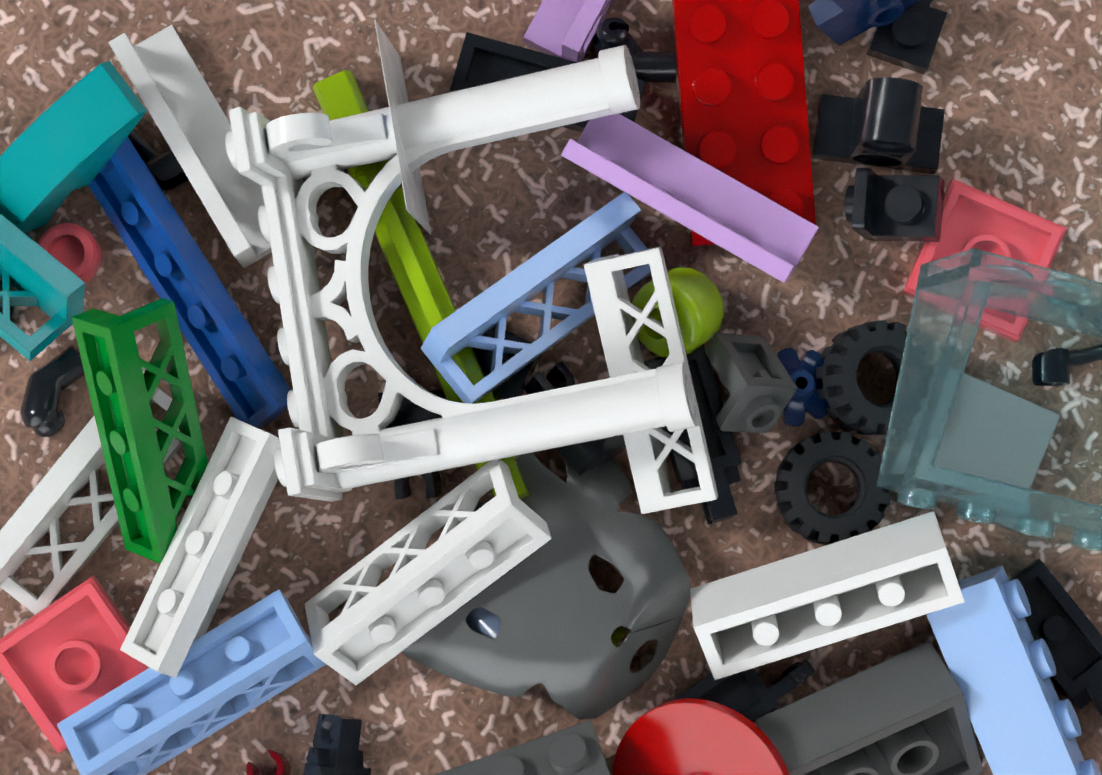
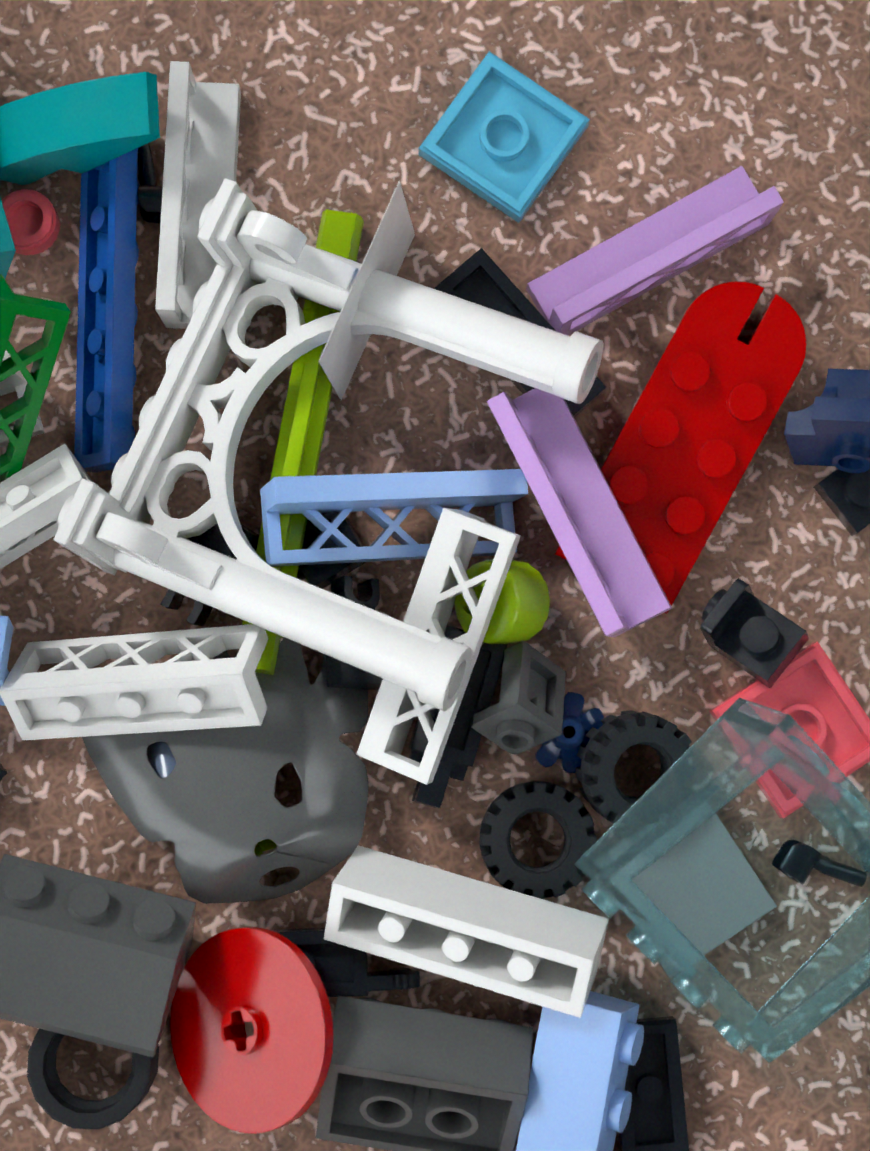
camera: 30 degrees right, 0 degrees up
(648, 65) = (613, 372): black arm -> none
(880, 127) = (783, 557): black tile -> none

